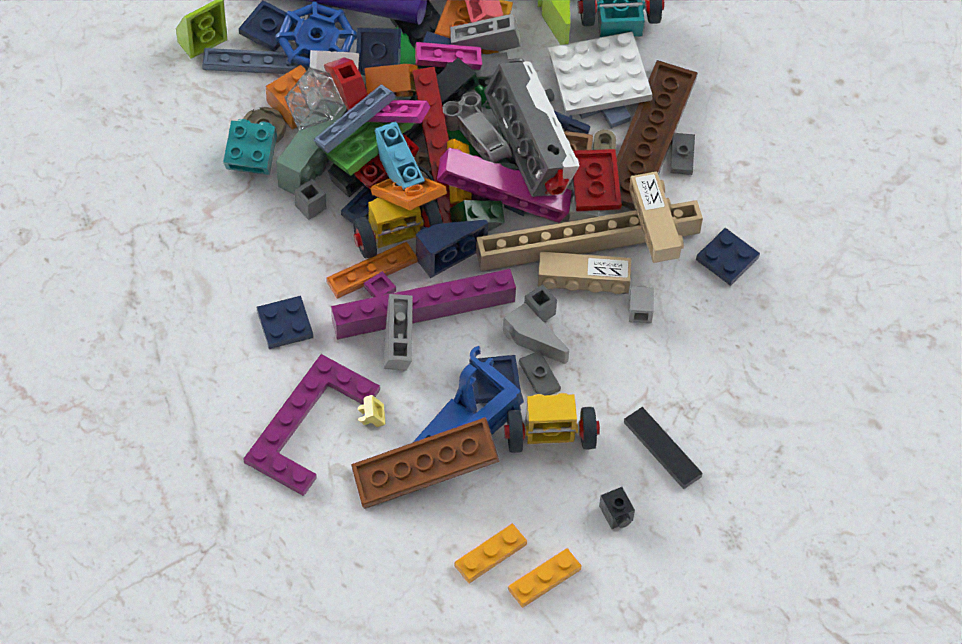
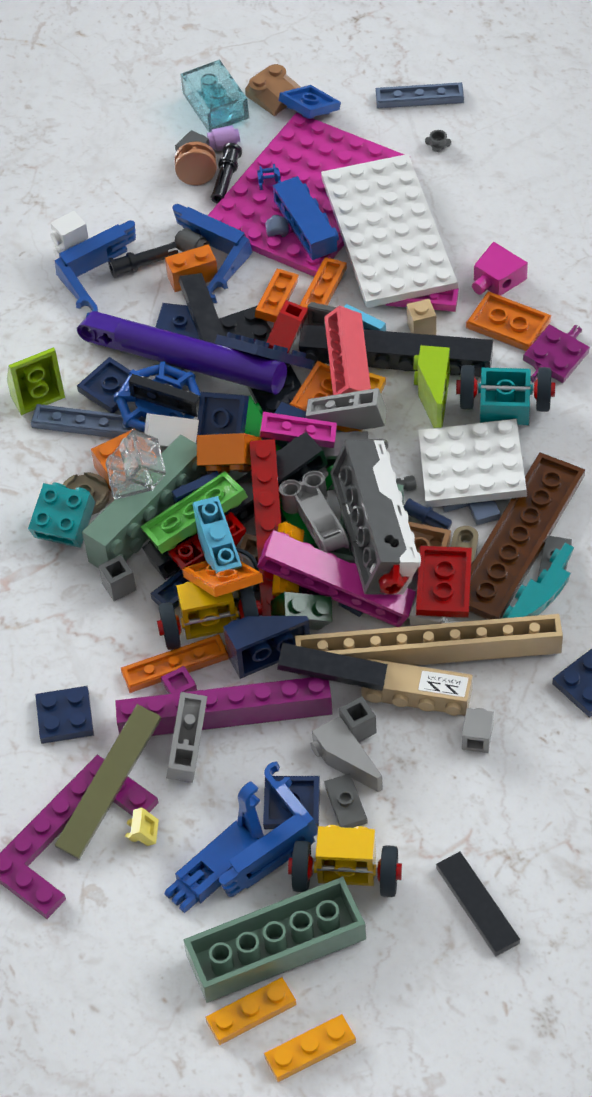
camera: 15 degrees right, 5 degrees down
(323, 32) = (164, 395): none -> black plate
(337, 376) = (108, 782): none -> olive tile
(347, 80) = (177, 454): red slope -> none
(354, 118) = (175, 490): sand blue tile -> none
(402, 112) = (222, 485): dark pink plate -> none
(425, 463) = (189, 894): dark orange tile -> none
(502, 493) = (275, 939): none -> sand green brick
(513, 261) = (332, 666): none -> black tile
(617, 508) = (409, 971): black brick -> none
(655, 217) = (505, 629): tan brick -> none
(683, 174) = (541, 593): none -> teal slope

